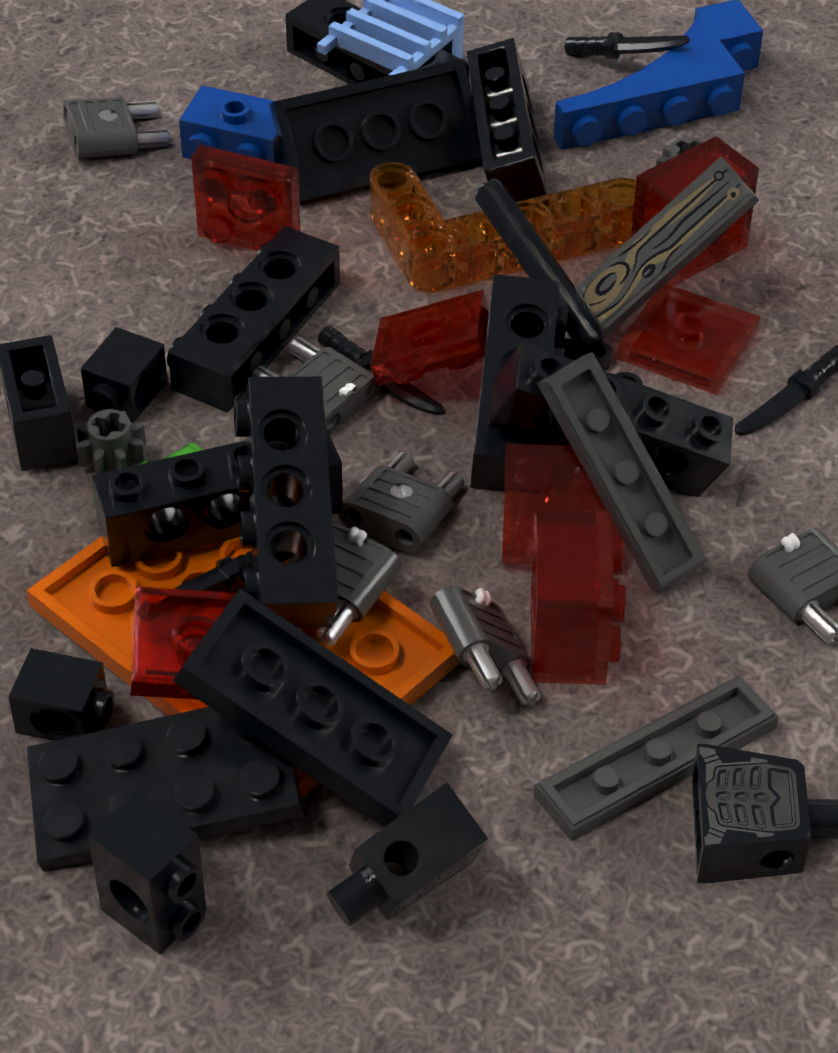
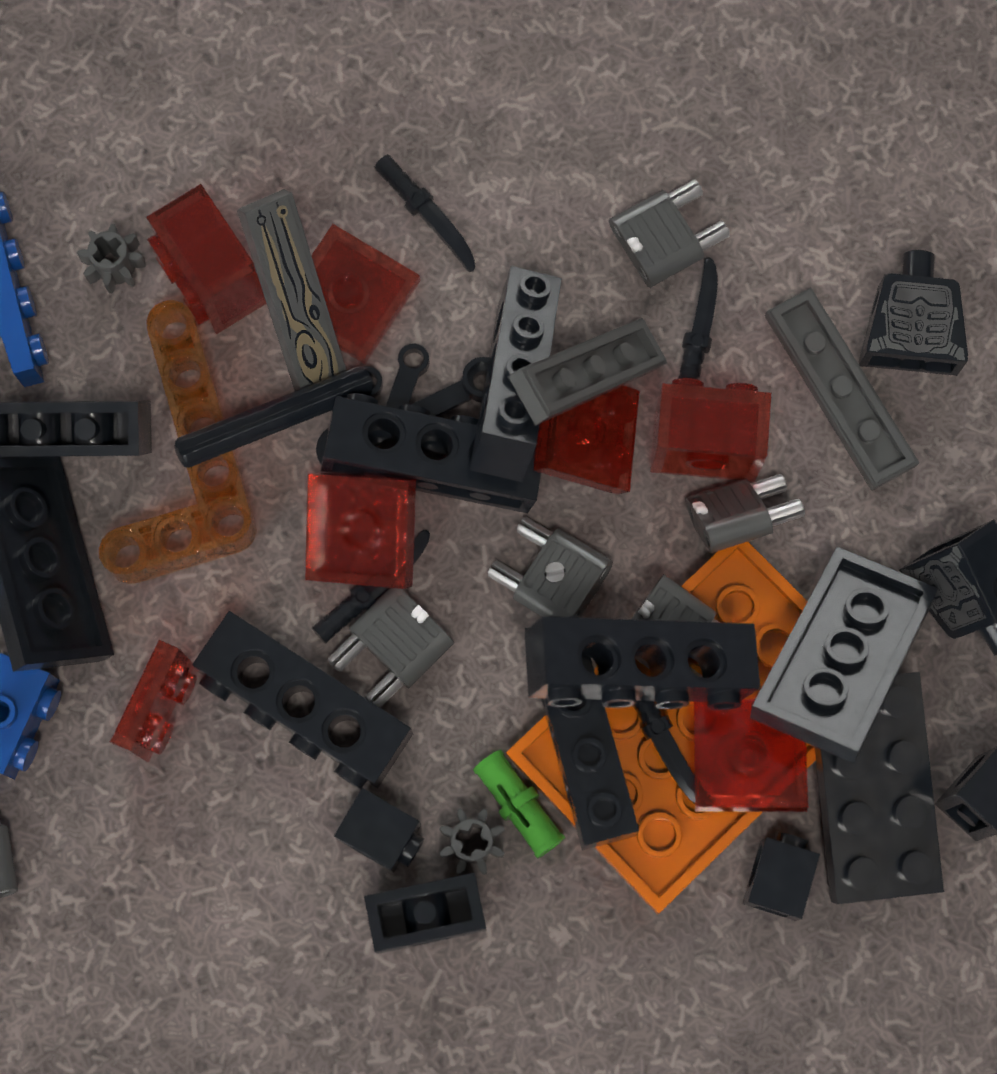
camera: 85 degrees left, 30 degrees up
(691, 620) = (698, 340): none -> black piece

